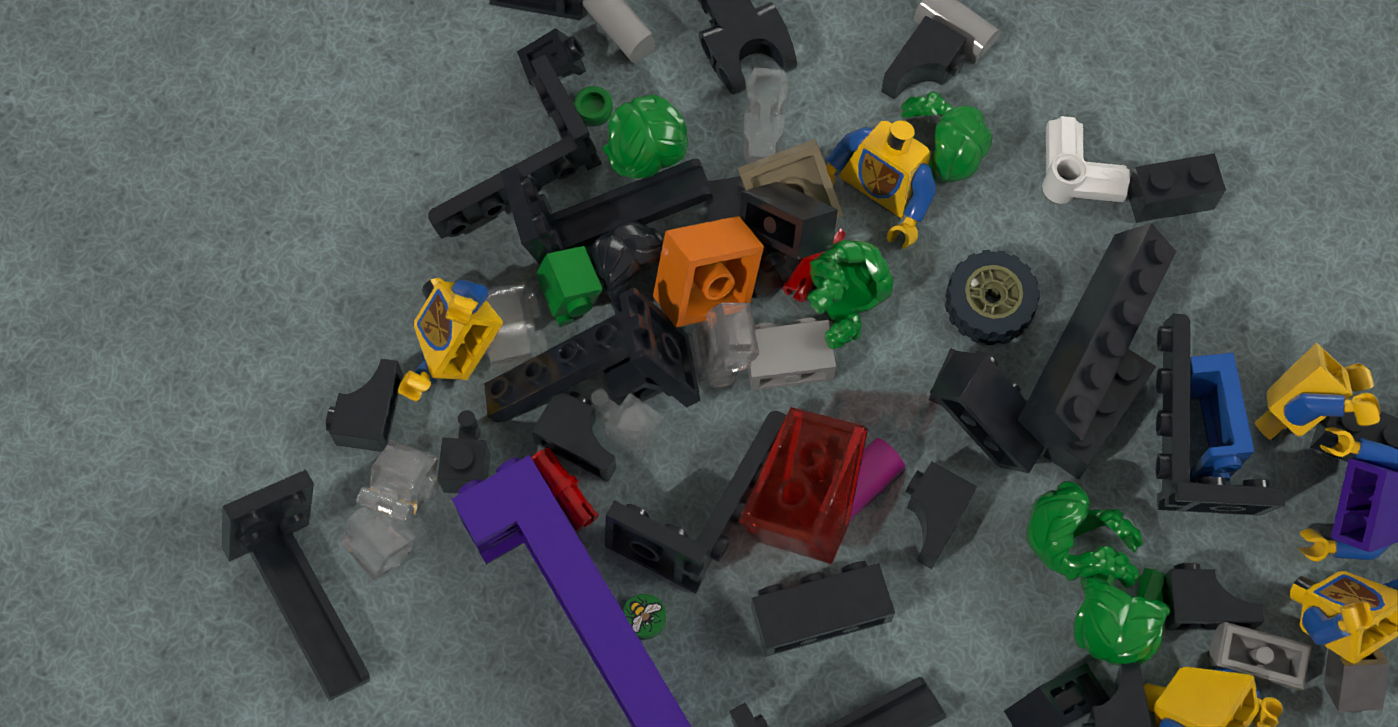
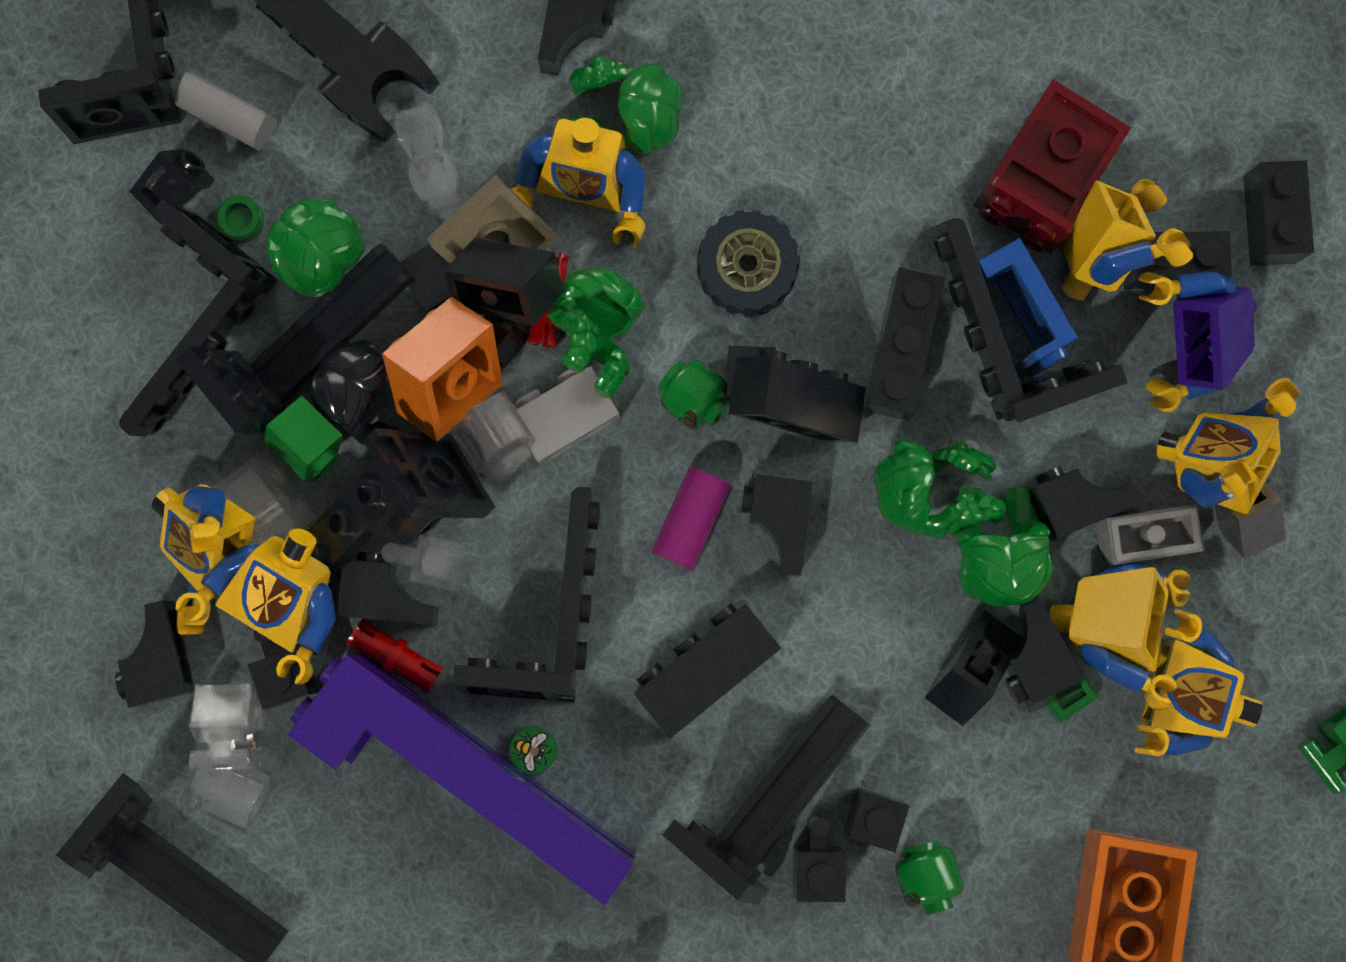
camera: 25 degrees left, 15 degrees up
(492, 387) = (276, 593): none -> torso
(807, 486) = (641, 554): clear red slope -> none
(904, 380) = (694, 394): none -> green head
(1086, 179) = (798, 87): white piece -> none
(1097, 337) = (874, 269): black brick -> none
(1175, 188) = (891, 61): black brick -> none
(1280, 321) = (1051, 168): none -> dark red bracket

